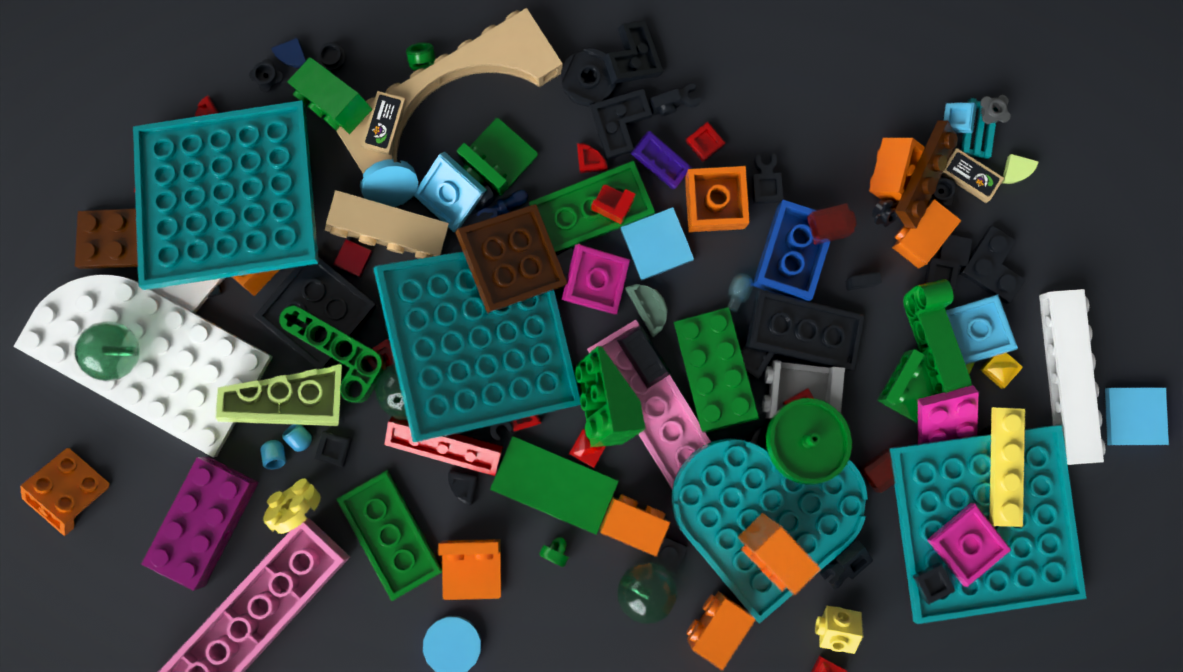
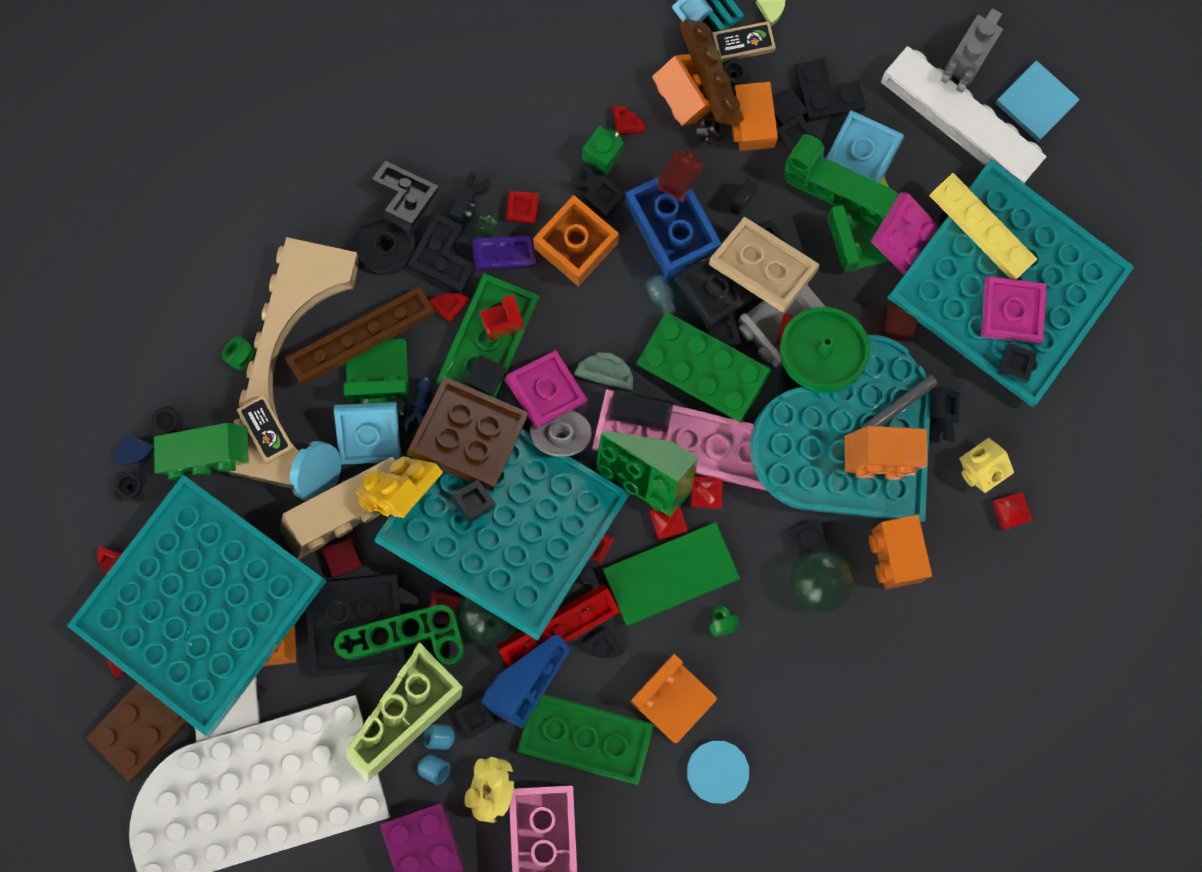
camera: 45 degrees left, 5 degrees down
(107, 351) = (227, 814): clear green piece -> none
(382, 459) = (524, 683): none -> blue slope
(426, 249) = (398, 489): none -> yellow plate
(465, 307) = (473, 501): none -> black plate
(508, 122) = (360, 336): none -> reddish brown plate
(564, 230) = (485, 375): none -> black tile
(587, 321) = (563, 435): none -> light grey dish
(633, 455) = (706, 493): none -> red tile
(635, 525) = (762, 539): orange brick -> none
(657, 243) = (564, 318): medium azure tile -> none
(667, 130) = (486, 225): none -> clear green plate
(798, 155) = (603, 150): none -> green brick
(822, 529) = (903, 402): none -> dark grey bar
(827, 342) = (764, 264): none -> tan plate
(834, 152) = (627, 122): none -> red tile
(1001, 369) = (908, 162): yellow tile -> none
(1128, 337) = (973, 49): none -> dark grey hinge

